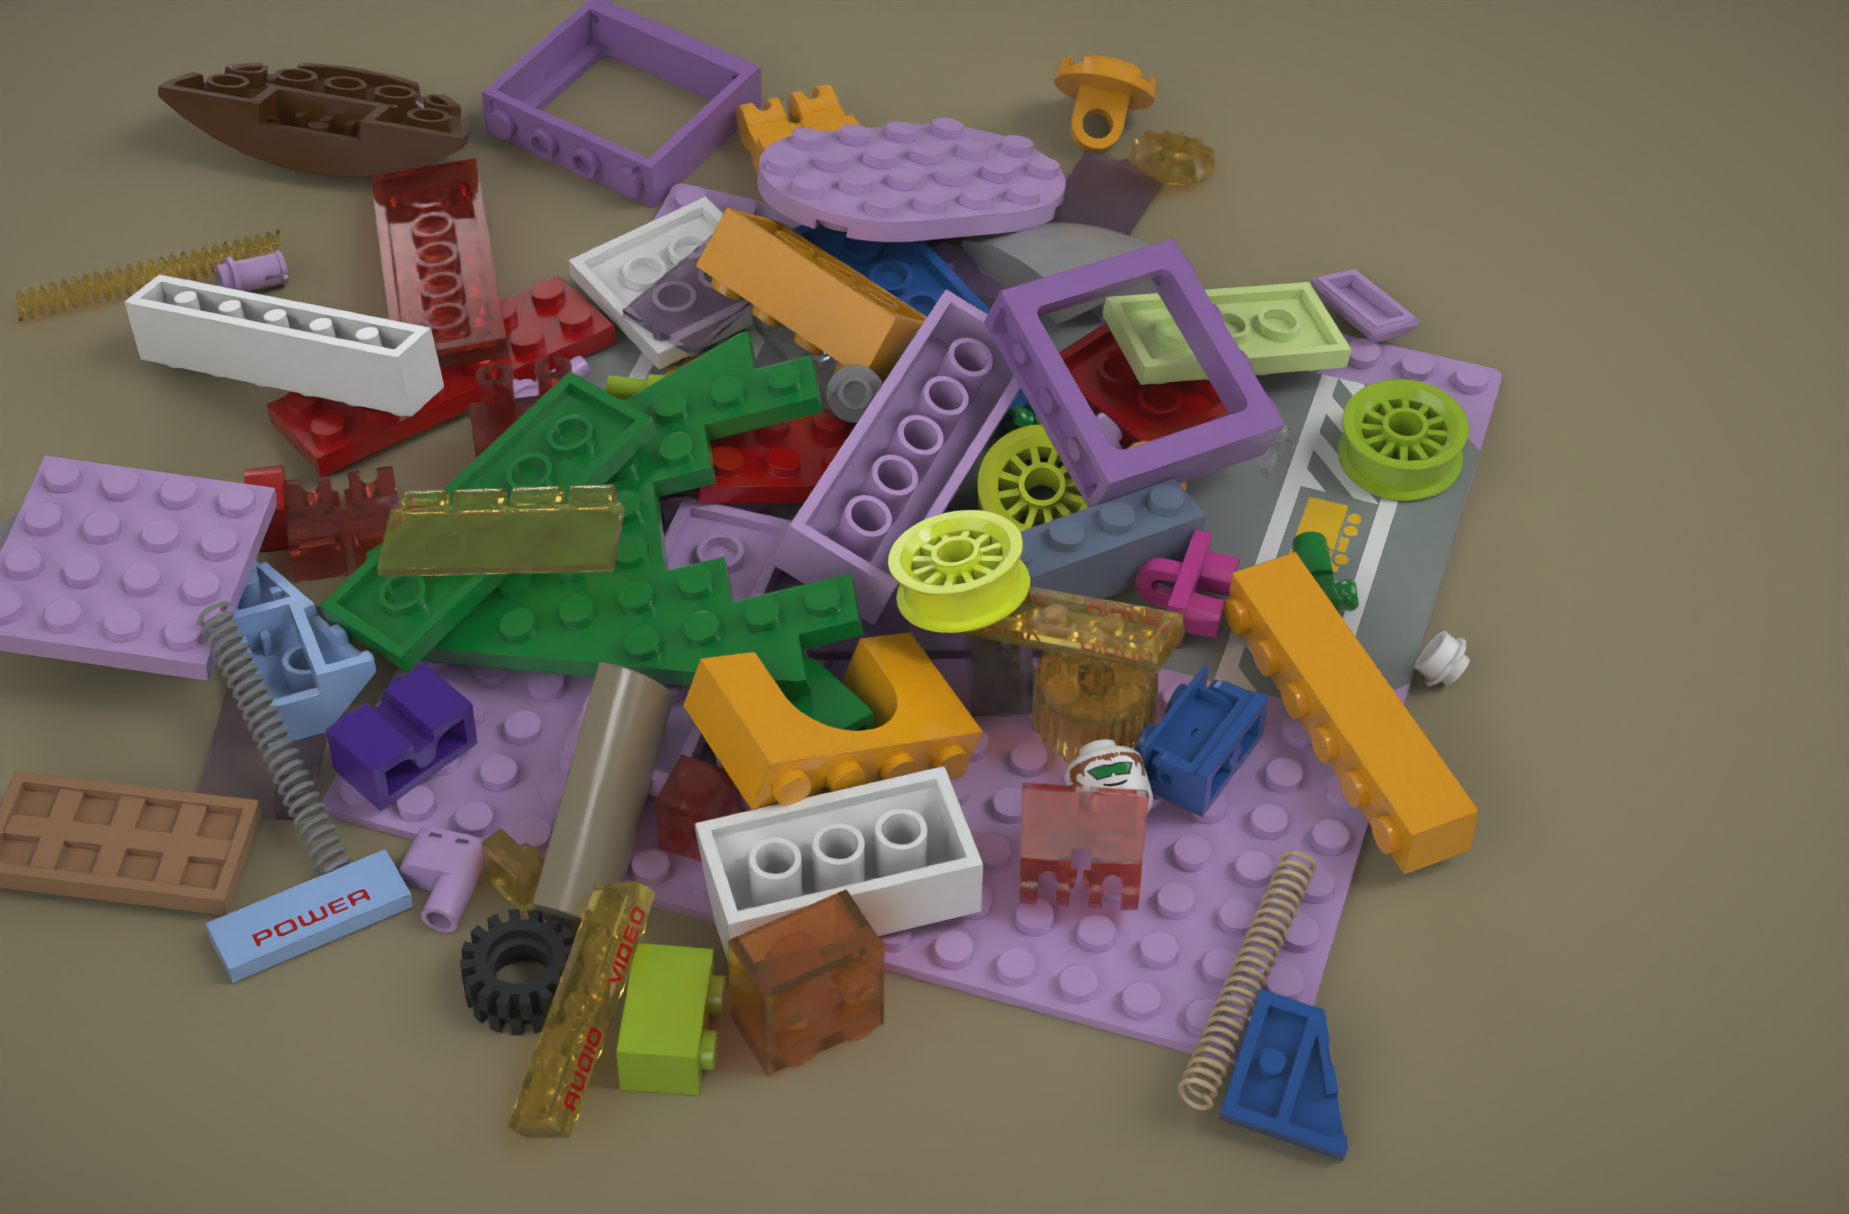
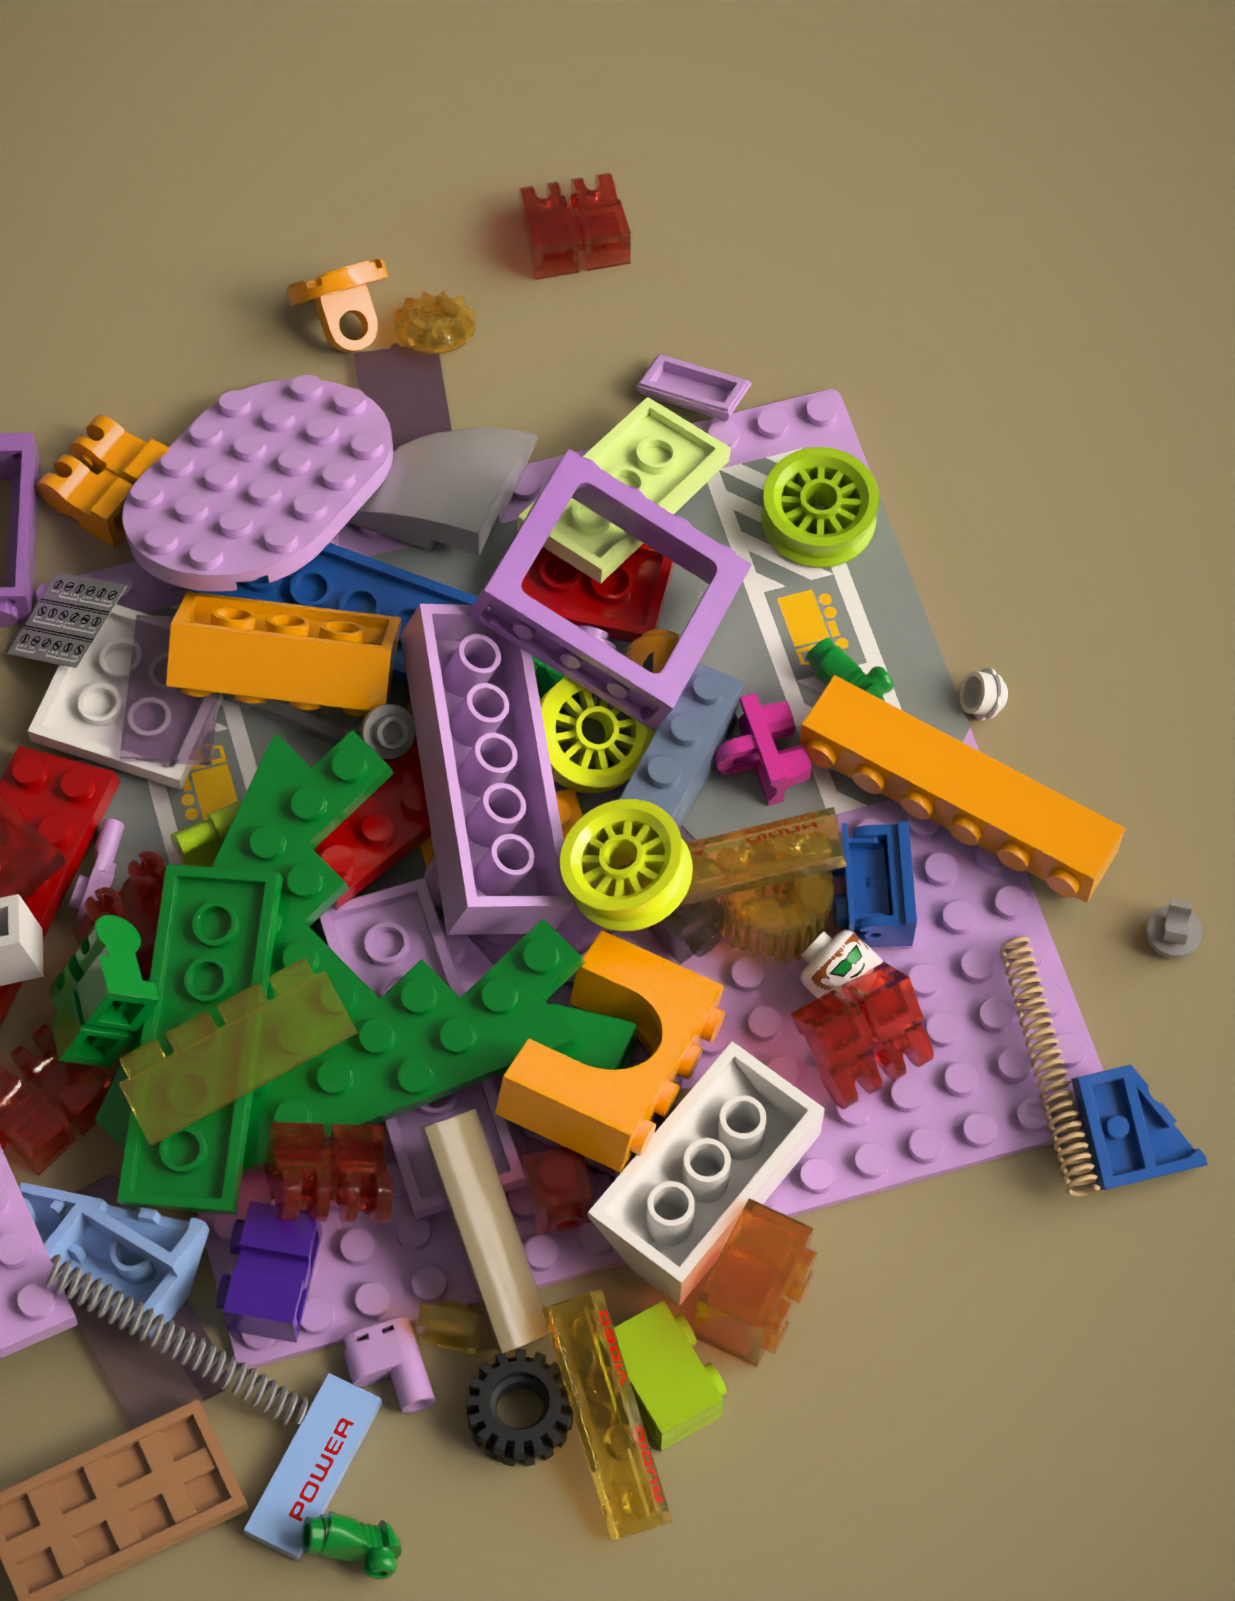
camera: 35 degrees left, 15 degrees up
(283, 985) = (352, 1541): none -> green arm
(441, 442) = (101, 995): none -> green legs
(493, 667) = (309, 1176): none -> clear red legs
(672, 204) = (67, 619): none -> light grey sticker
(1341, 139) = (557, 236): none -> clear red legs
(1478, 944) = (1174, 930): none -> light grey plate

